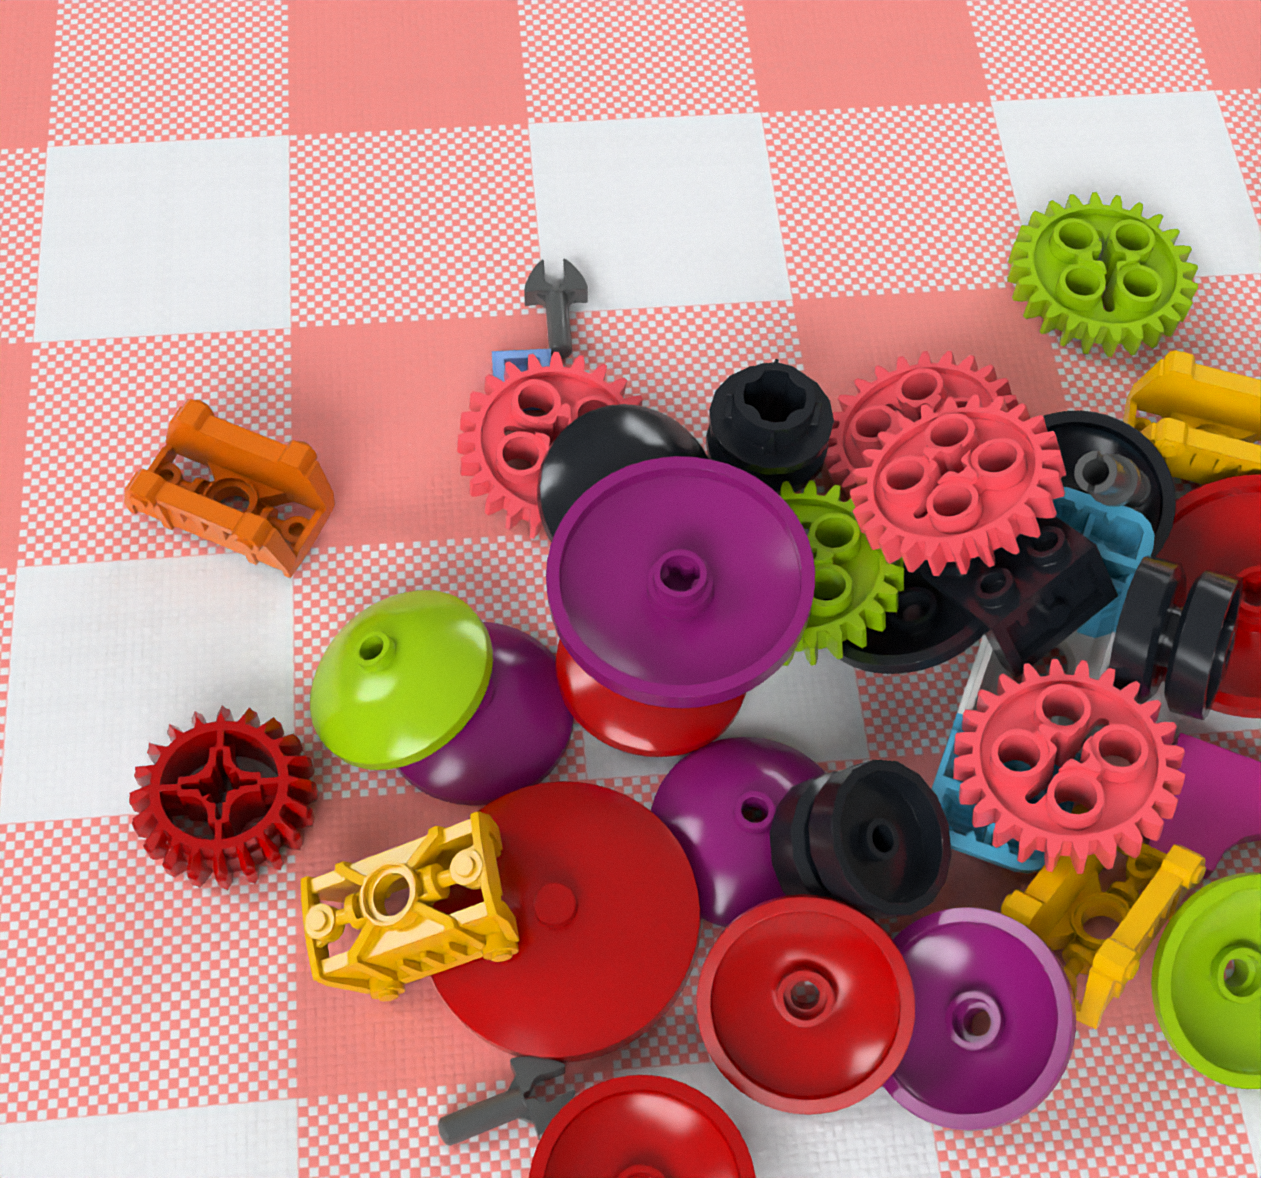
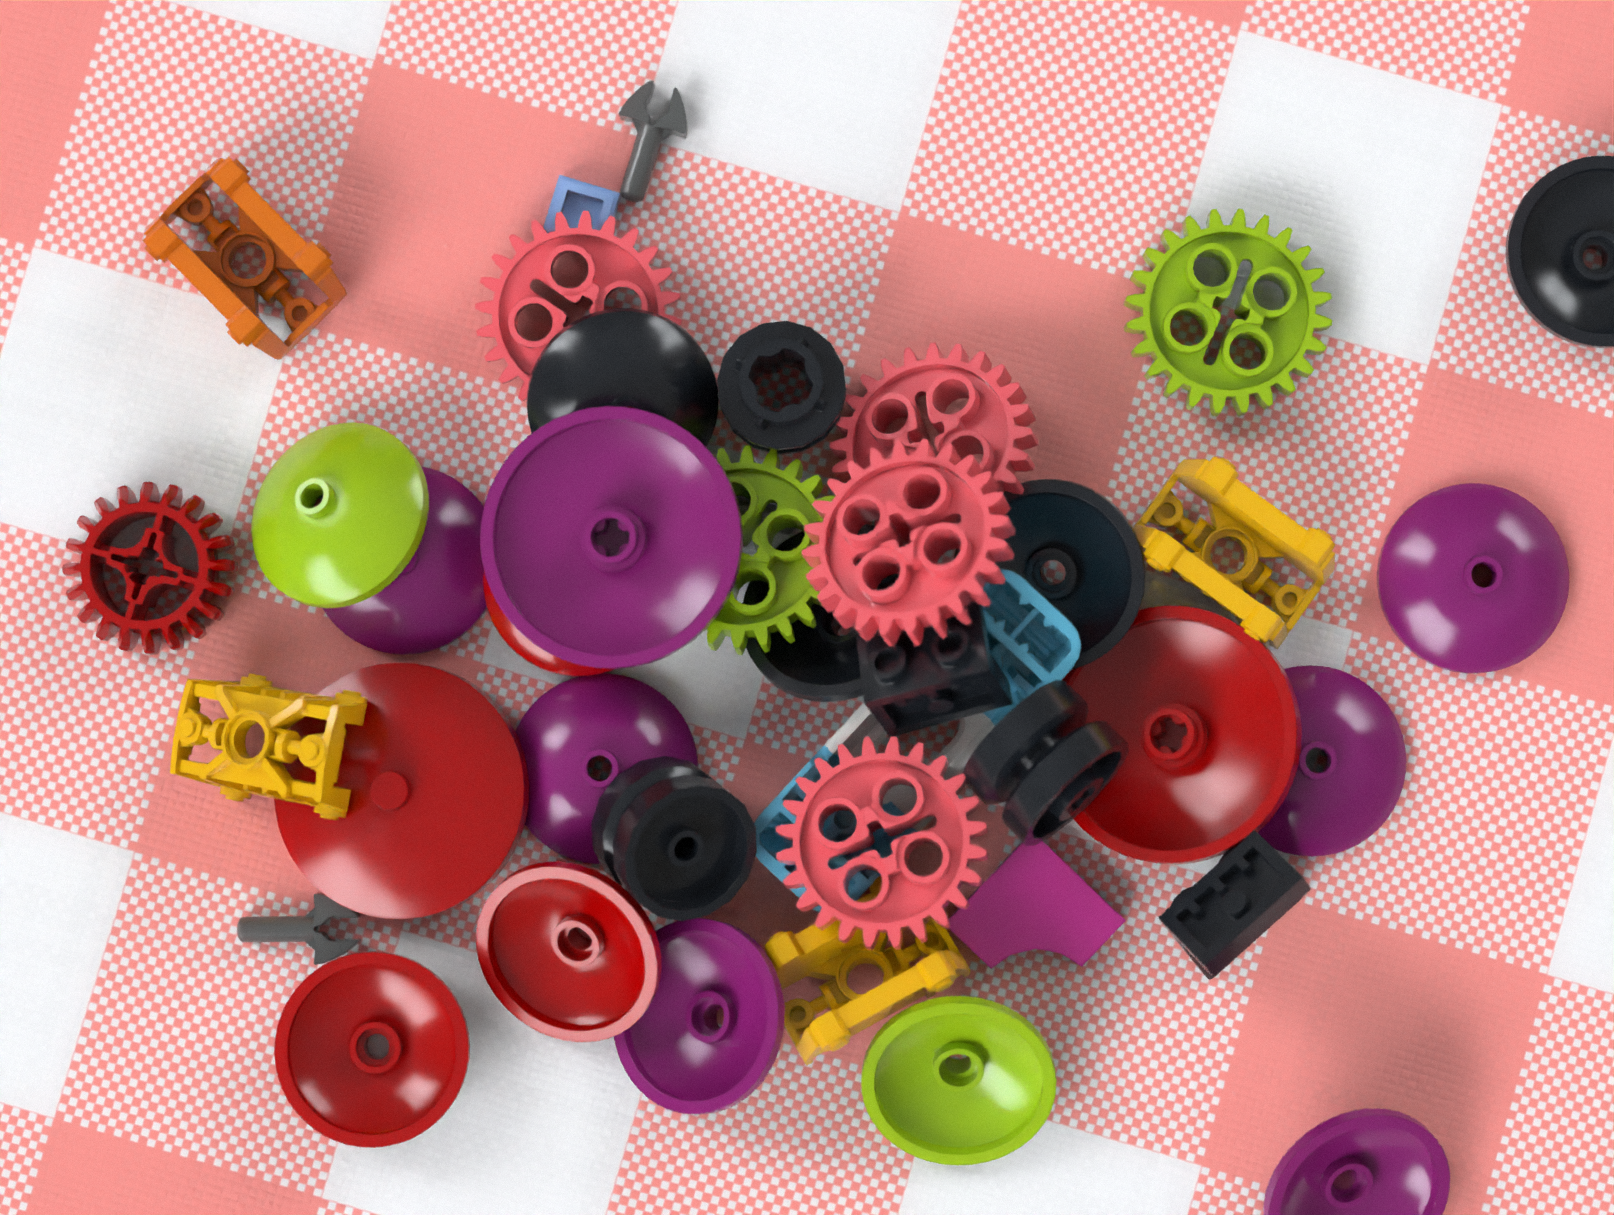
camera: 30 degrees right, 25 degrees up
(1112, 479) = (1058, 595): dark grey pin -> none

